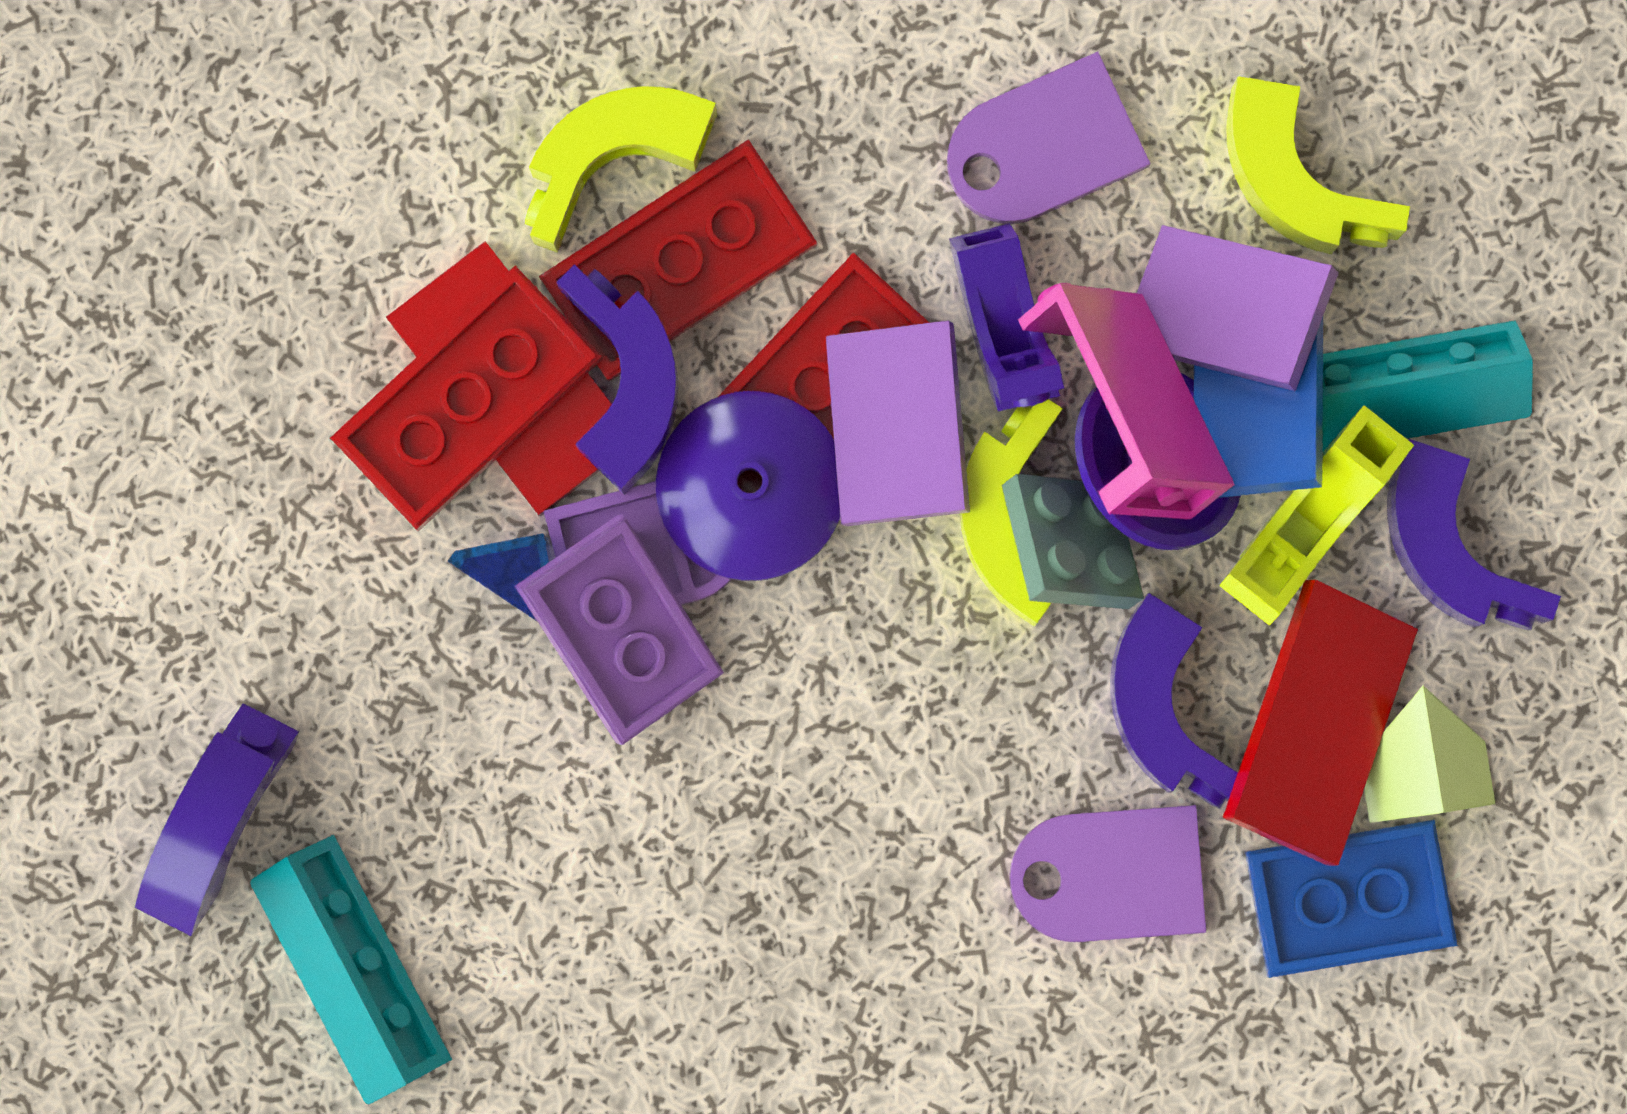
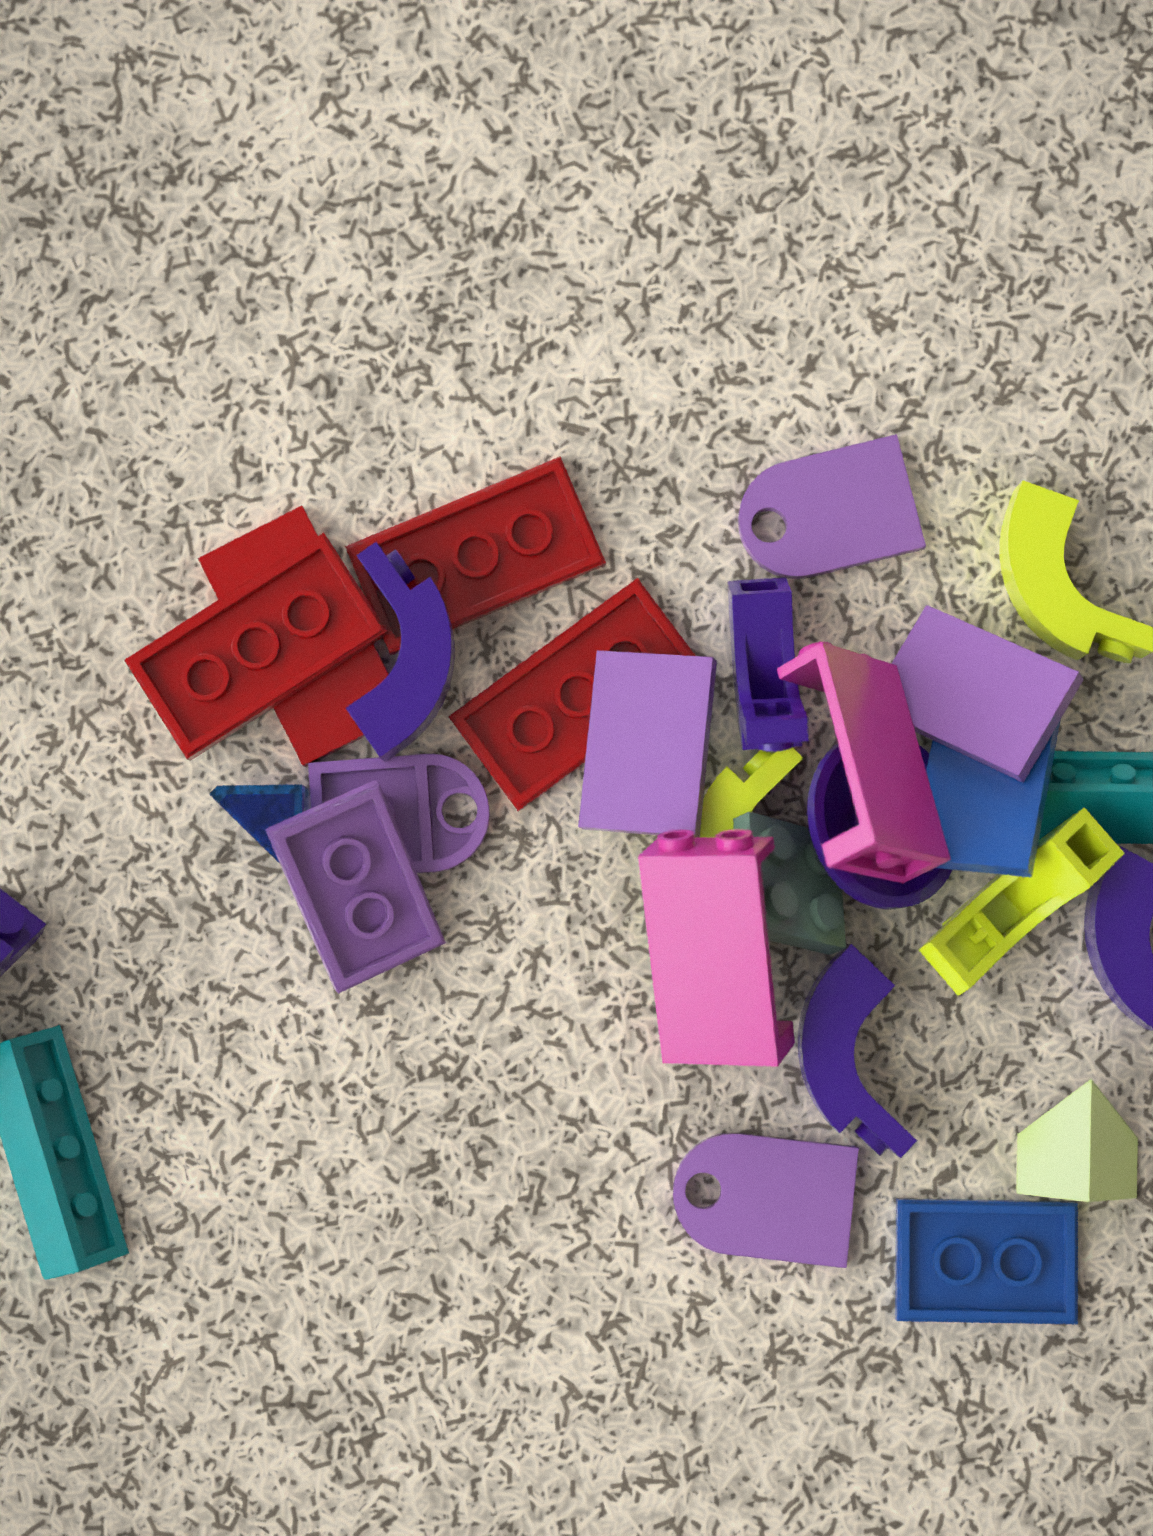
camera: 15 degrees right, 0 degrees up
(609, 127) = (429, 424): neon yellow arch -> none
(738, 531) = (507, 819): dark purple dish -> none
(1004, 624) = (711, 949): none -> panel
(1320, 723) = (988, 1095): red tile -> none

